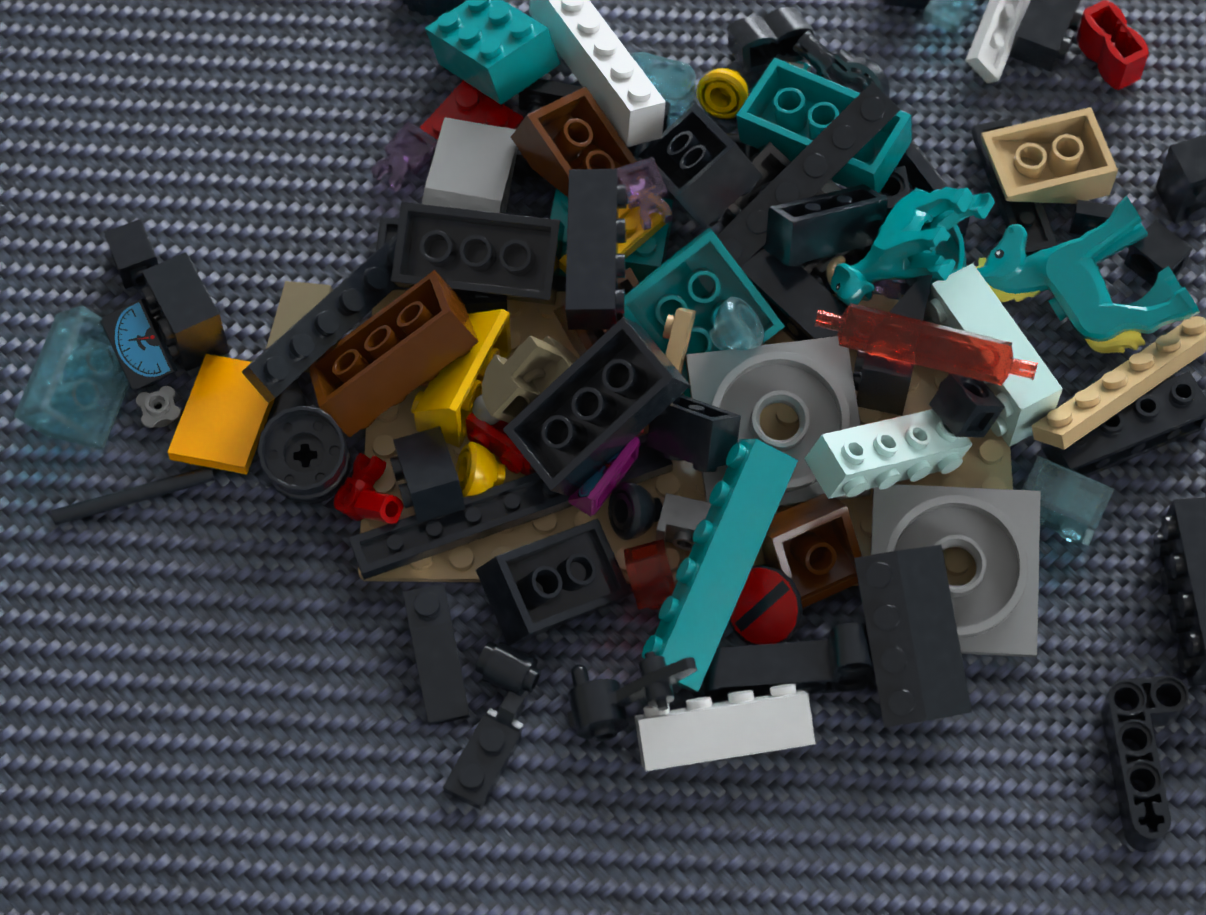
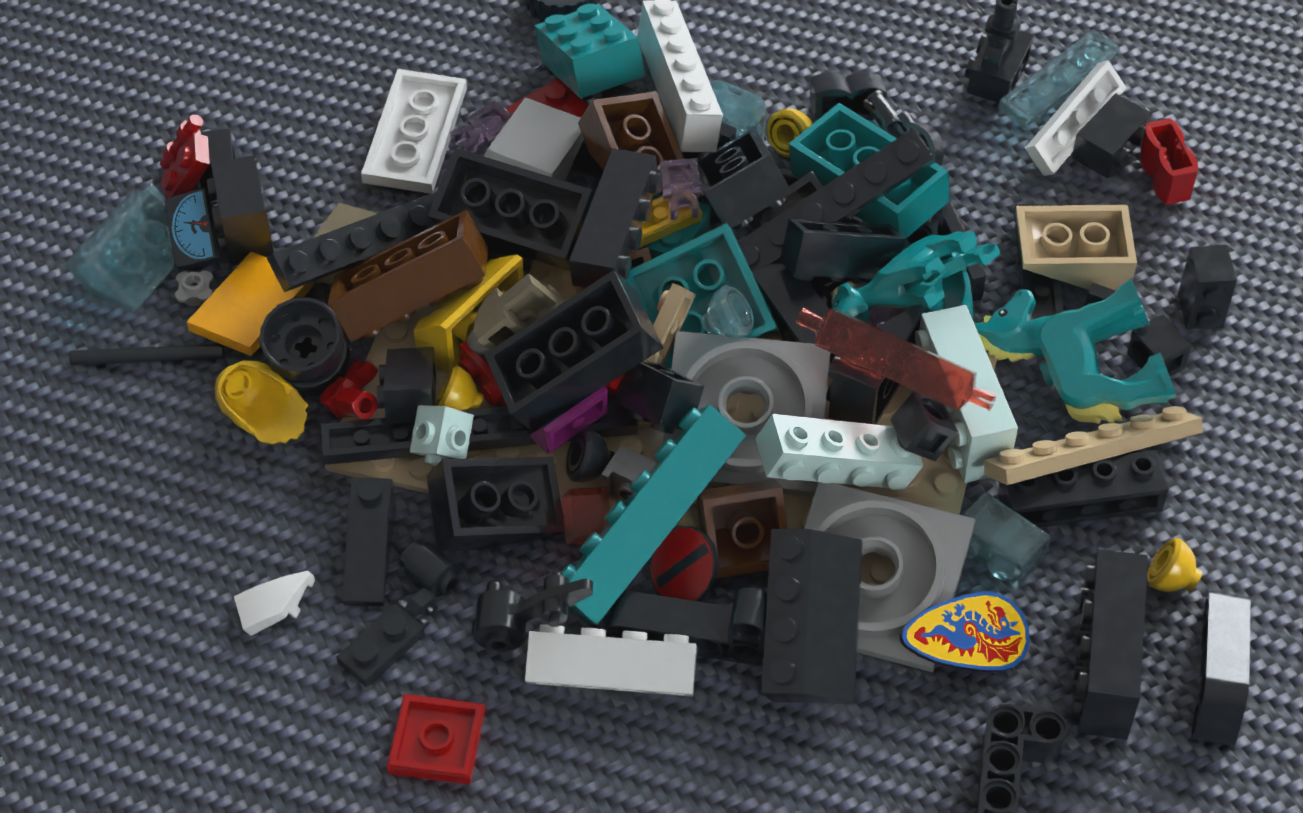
camera: 15 degrees right, 10 degrees down
(107, 273) = (185, 158): none -> red plate
(277, 526) = (261, 402): none -> yellow hair
(332, 175) = (414, 131): none -> white plate
(357, 743) = (272, 601): none -> white slope
(483, 526) = (441, 433): none -> light aqua brick
(571, 849) = (436, 739): none -> red tile
(1063, 610) = (970, 633): none -> shield

